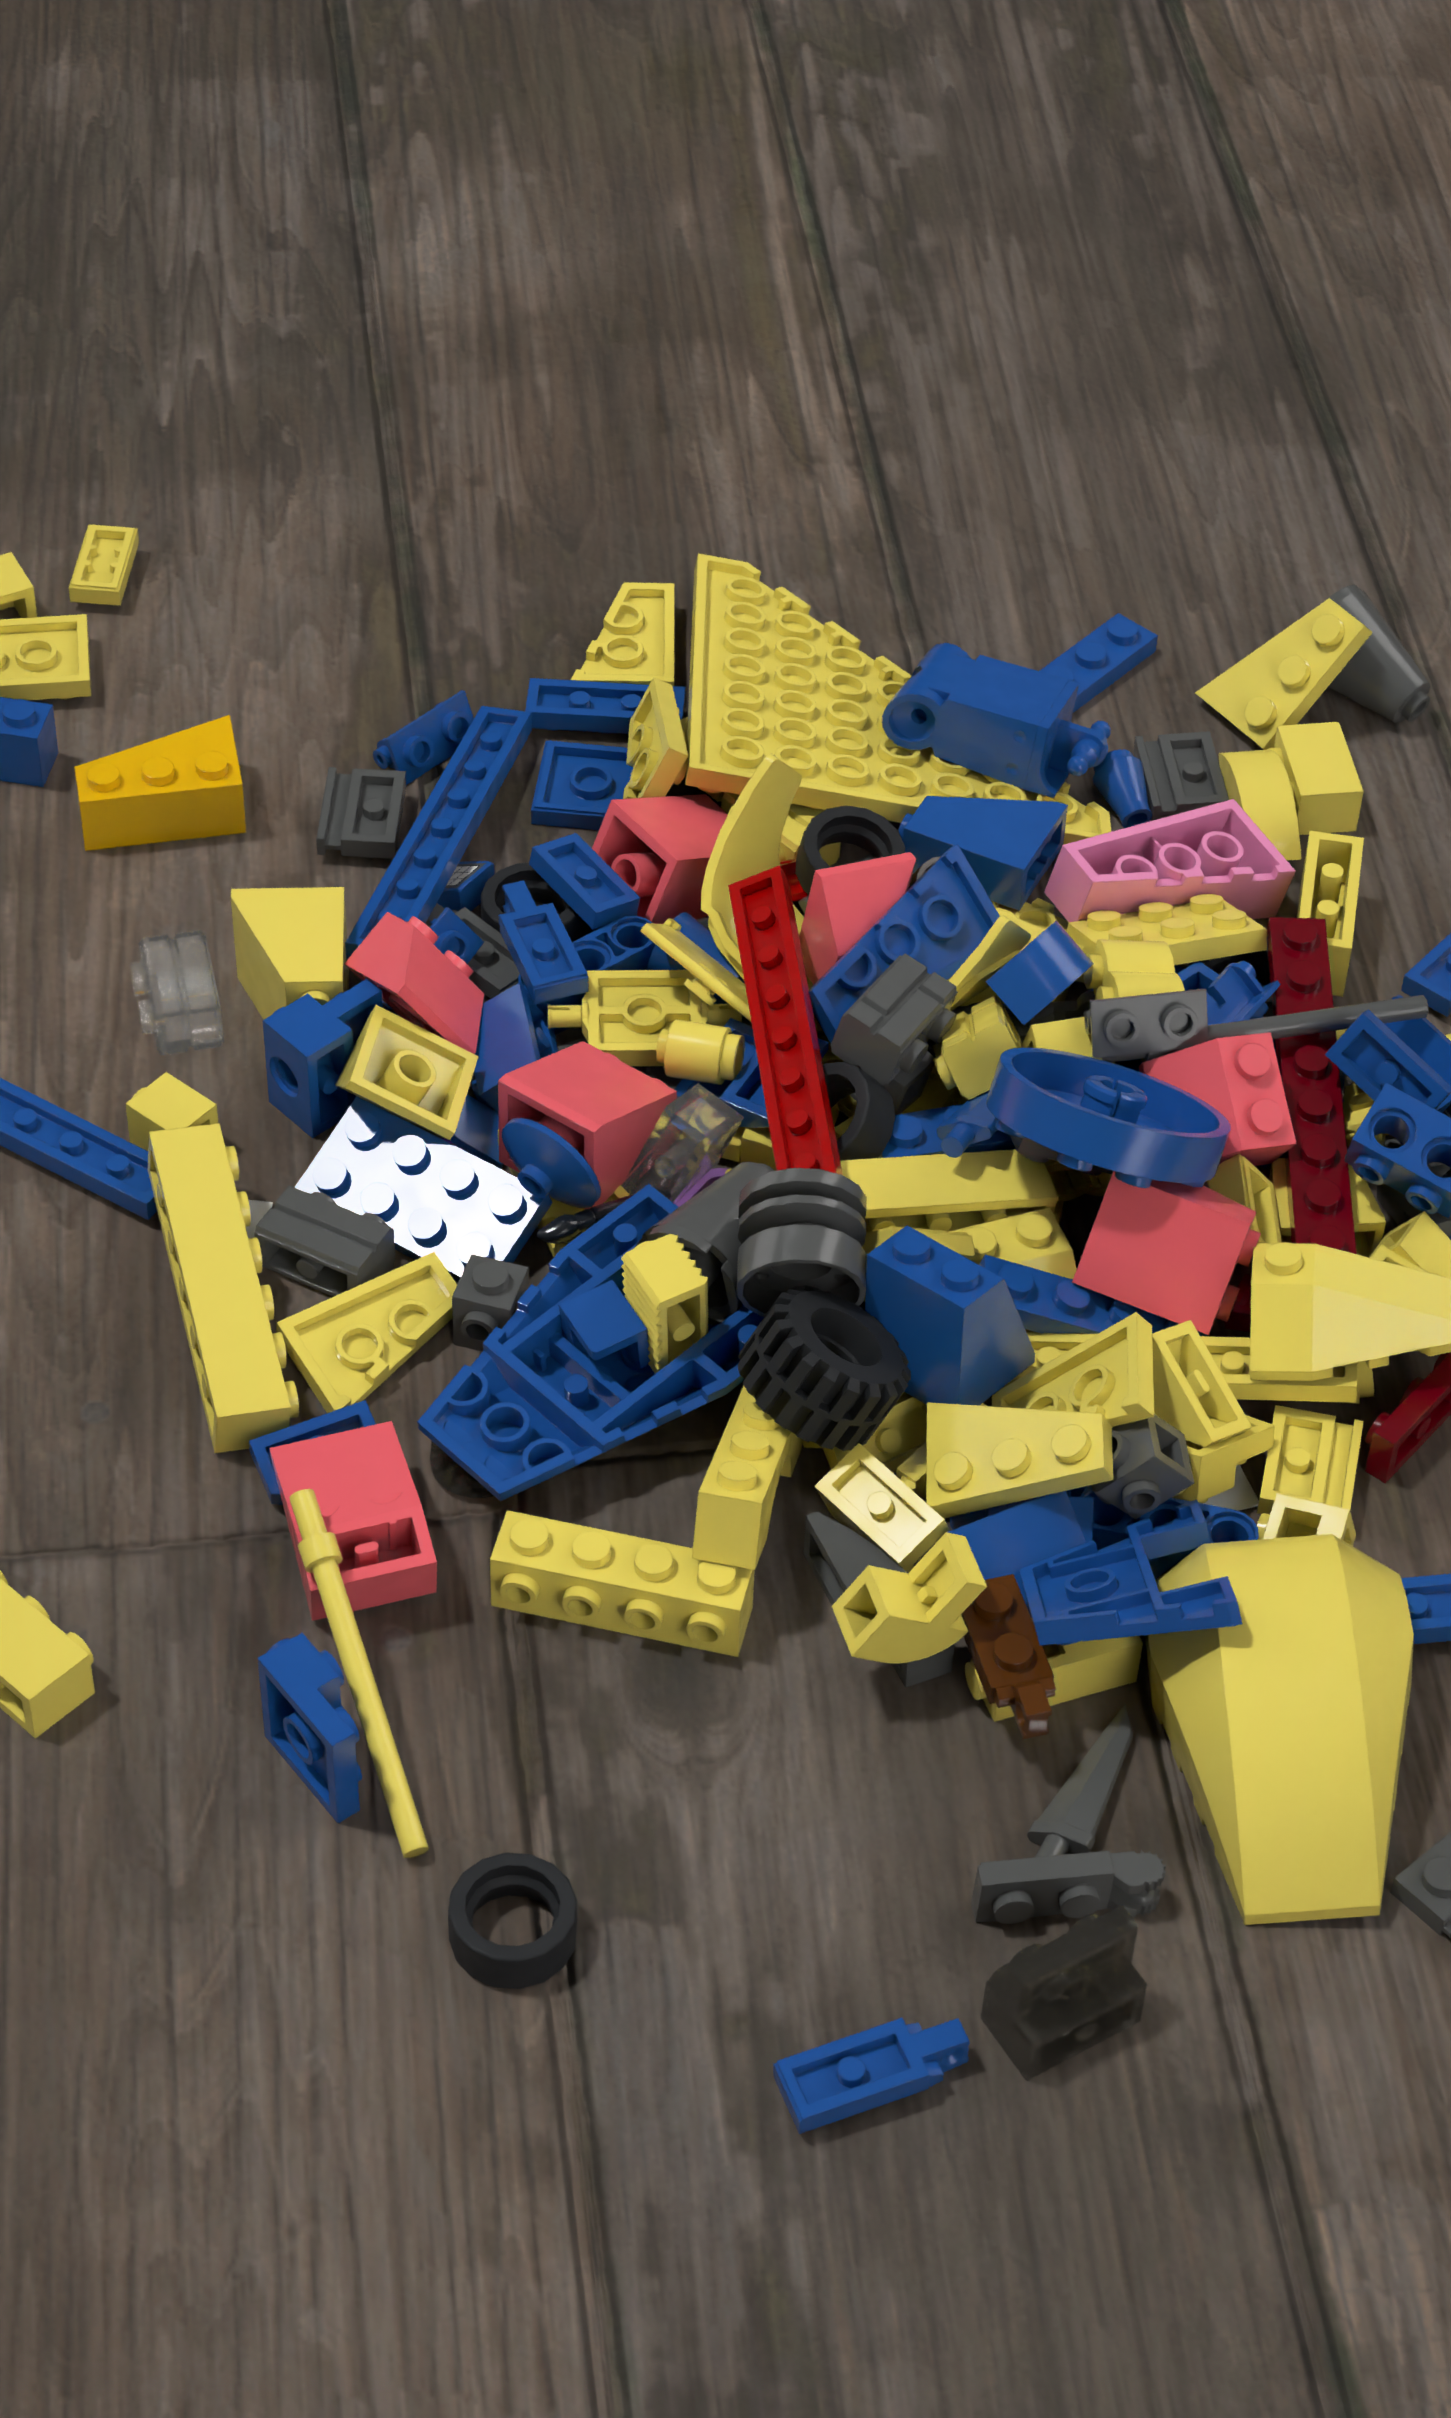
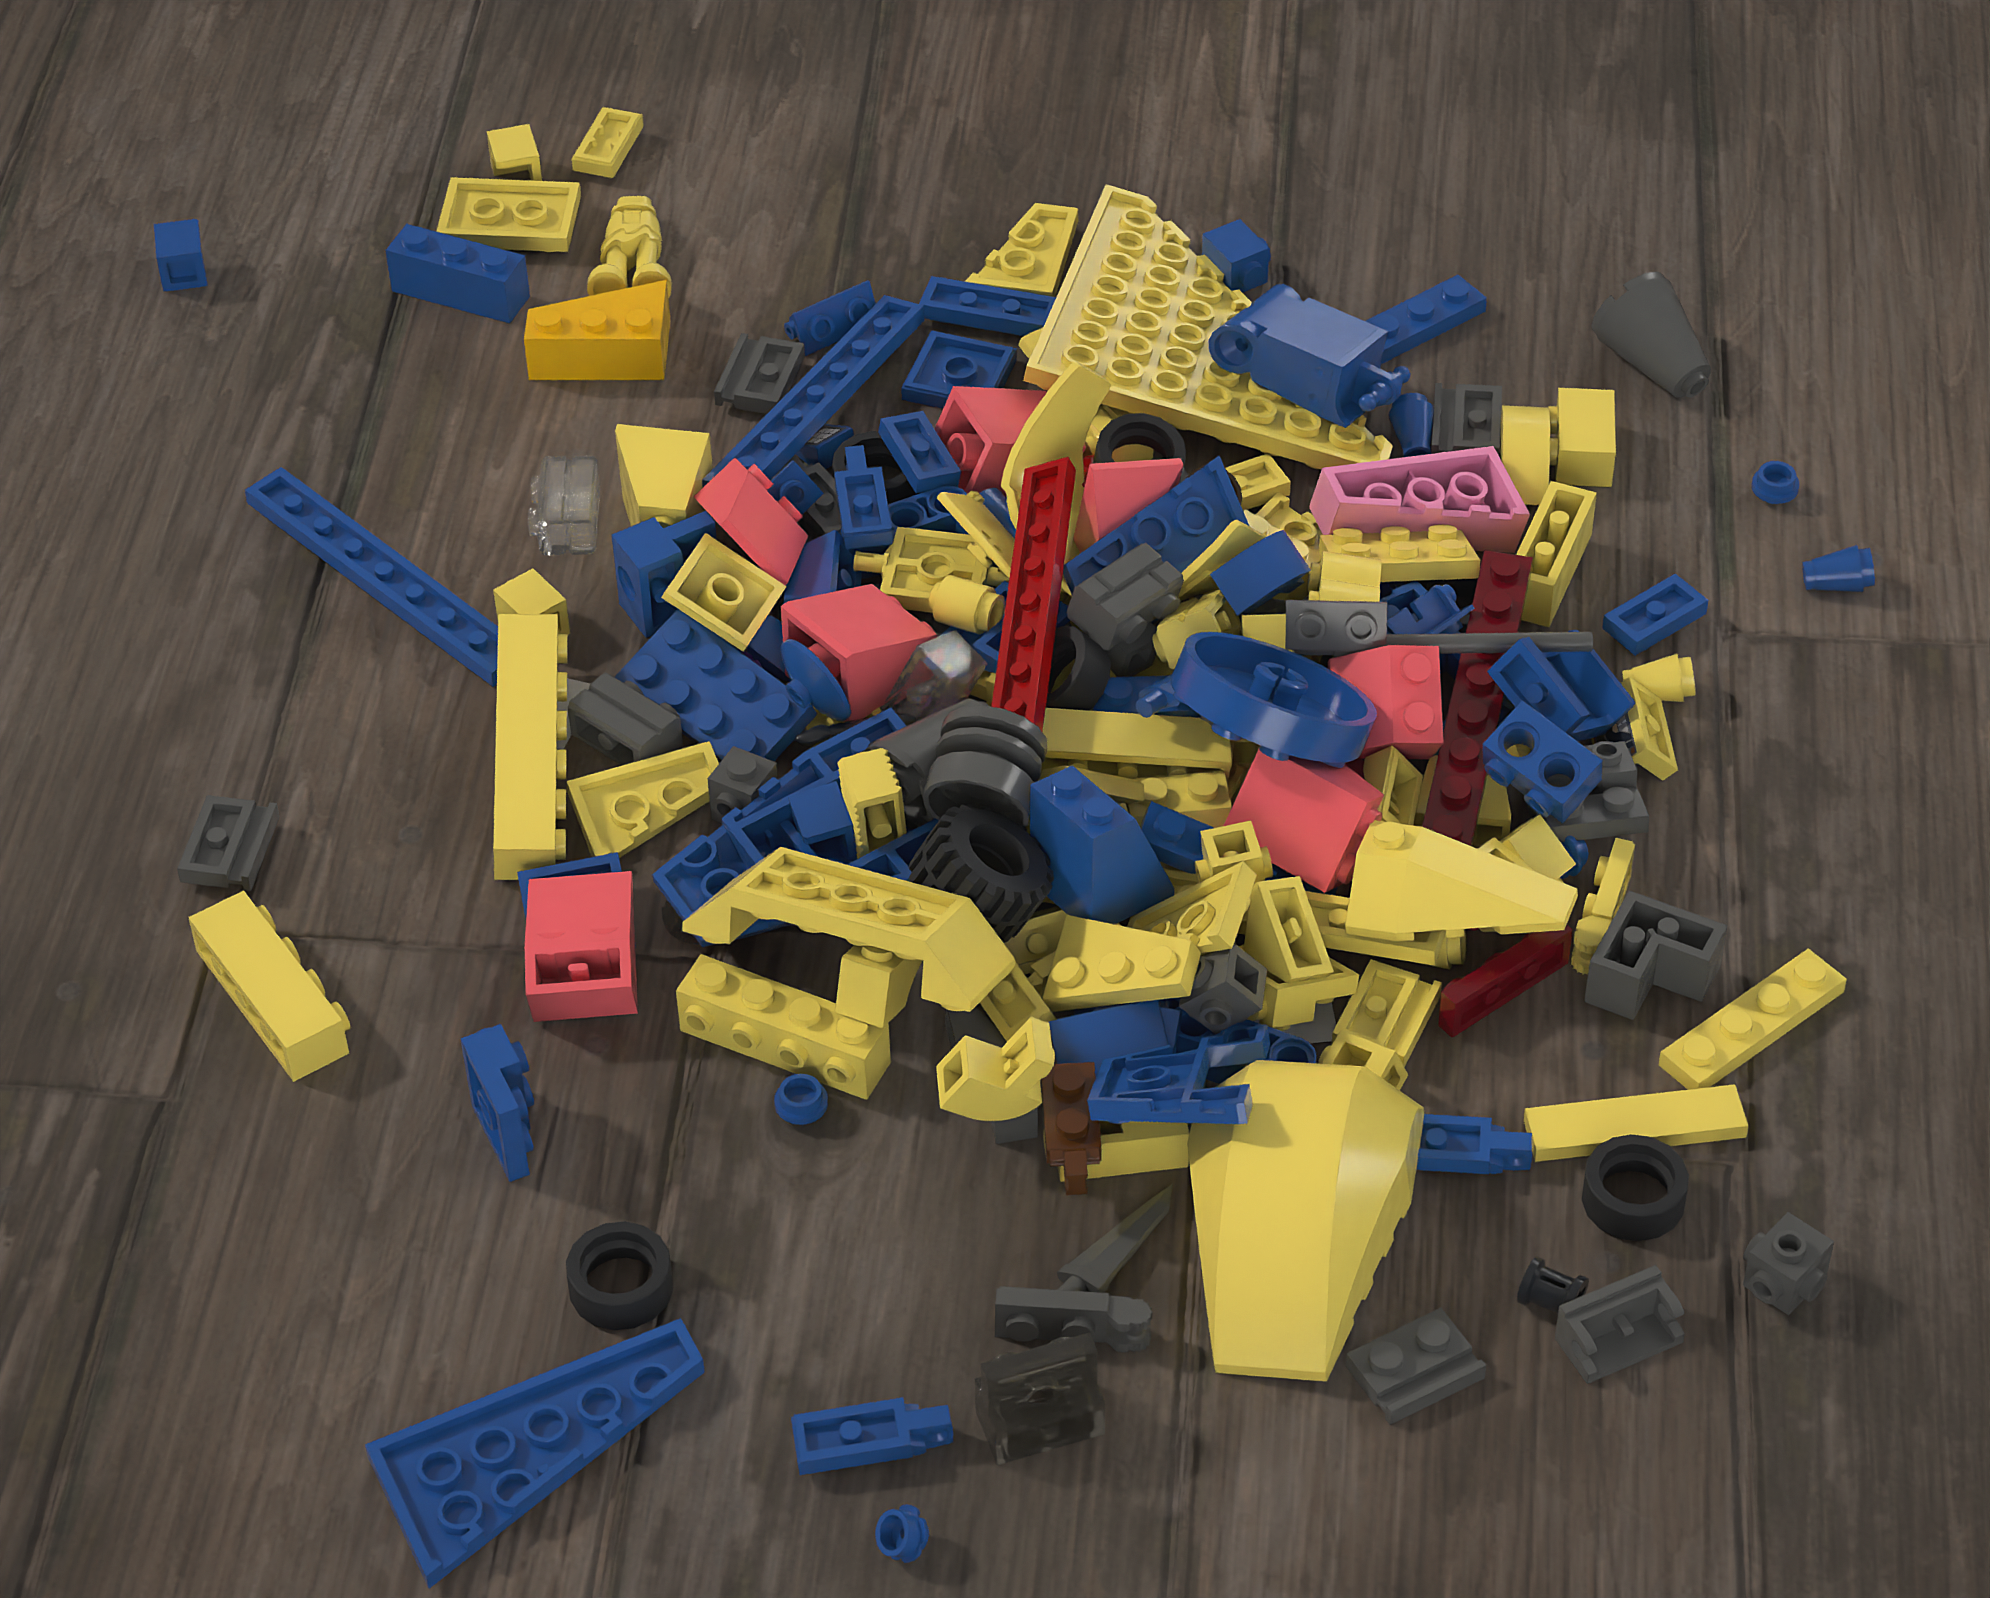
camera: 15 degrees right, 0 degrees up
(164, 674) = (629, 241): none -> light yellow piece
(321, 1557) = (537, 969): light yellow bar -> none
(426, 2176) = (497, 1457): none -> blue wing
(655, 744) = (1014, 342): light yellow wing -> none
(665, 1669) = (801, 1099): none -> blue plate
(704, 1429) = (914, 921): none -> light yellow slope
(870, 616) = (1238, 255): none -> blue brick
(934, 2191) = (902, 1533): none -> blue plate
(1001, 838) = (1270, 459): blue slope -> none
(1098, 1303) = (1229, 846): none -> light yellow brick
(1286, 673) = (1581, 342): light yellow wing -> none

